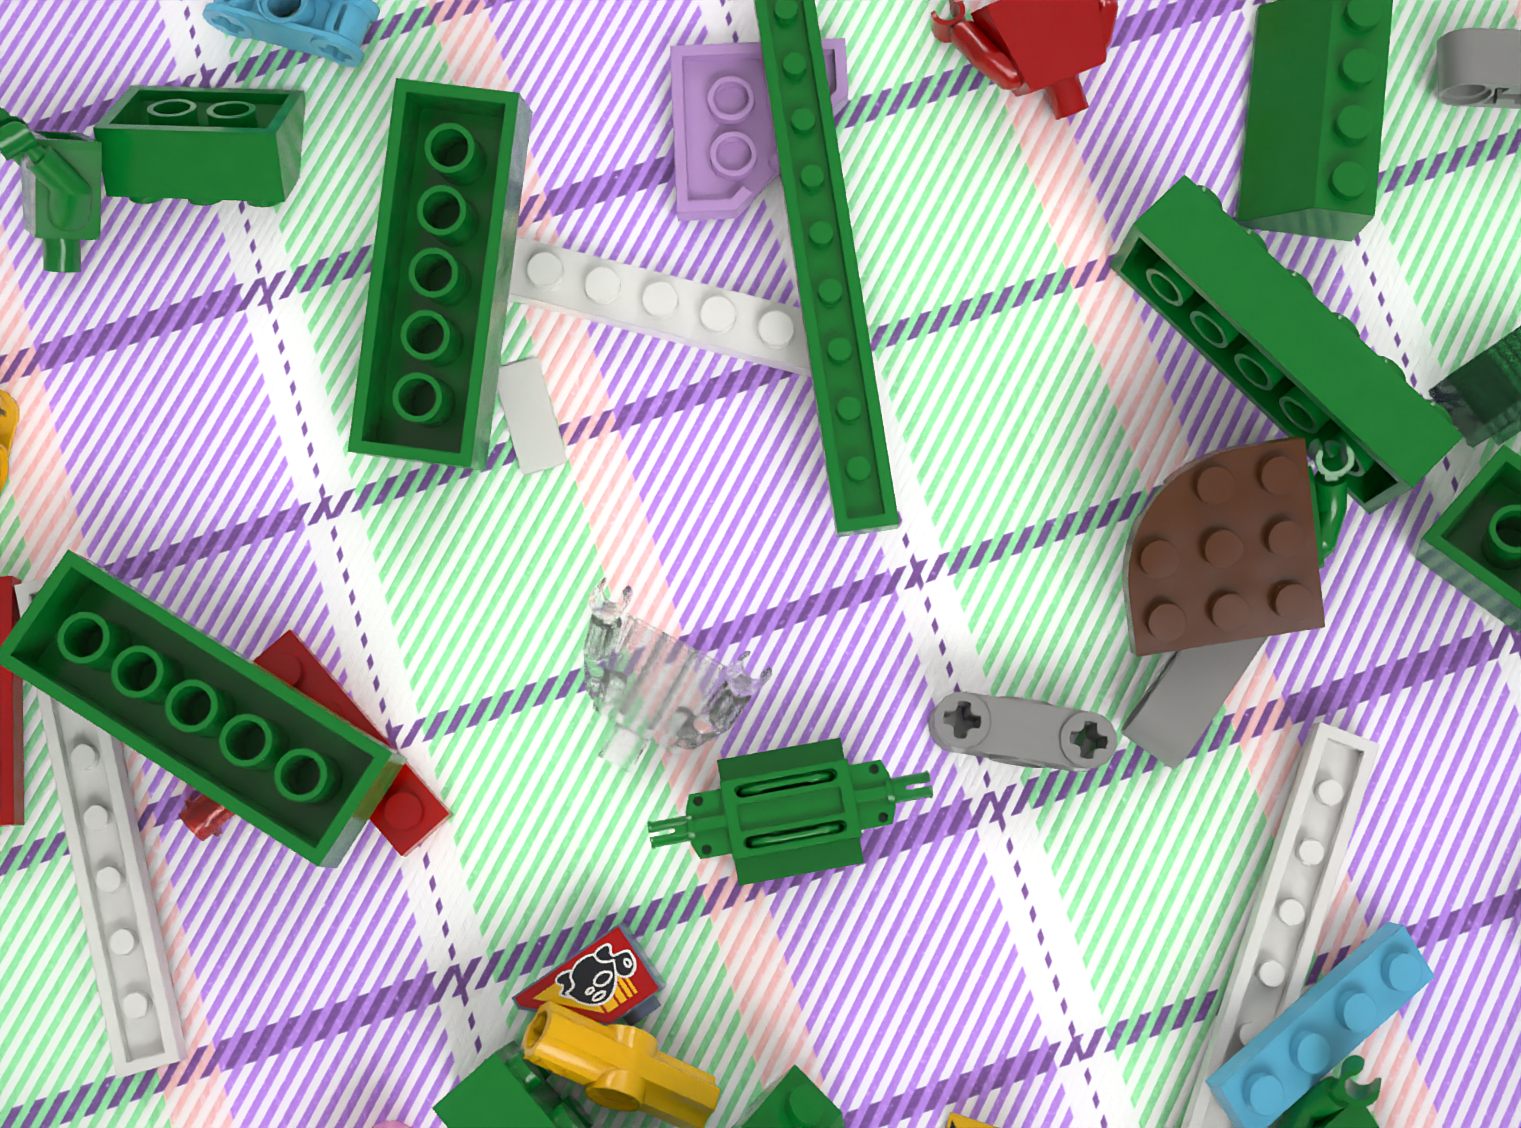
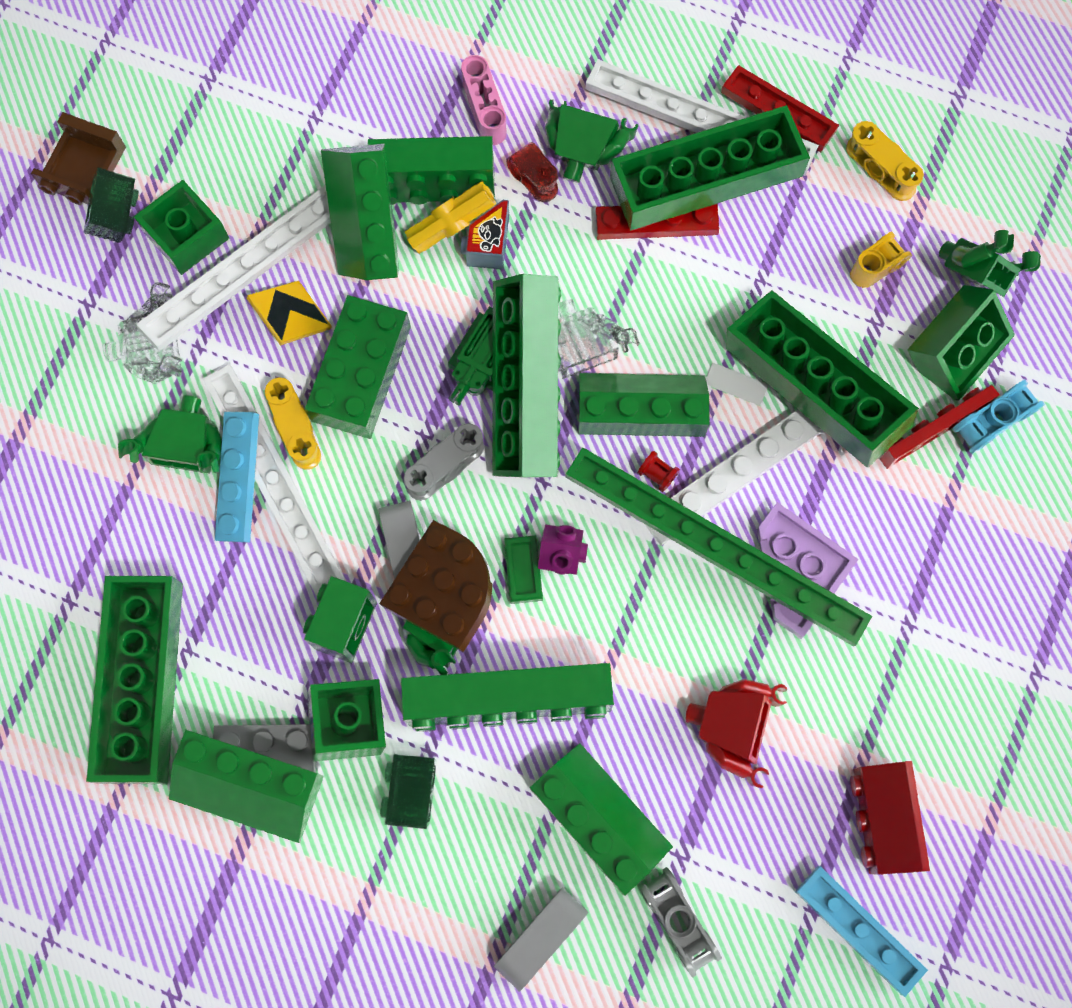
camera: 130 degrees right, 5 degrees down
(148, 349) = (882, 257): none -> yellow piece
(293, 974) = (584, 138): none -> green torso
(334, 68) = (948, 417): none -> red plate
(415, 1021) = (534, 172): none -> clear red piece
(678, 518) = (643, 404): none -> green slope
(768, 412) = (658, 471): none -> red bush
(809, 693) = (526, 376): none -> brick
(990, 998) = (358, 367): none -> green brick
(1006, 448) = (562, 549): none -> magenta brick
(1071, 490) = (523, 570): none -> green tile
(1163, 1021) = (292, 423): none -> yellow piece
(1394, 669) = (339, 619): none -> green brick

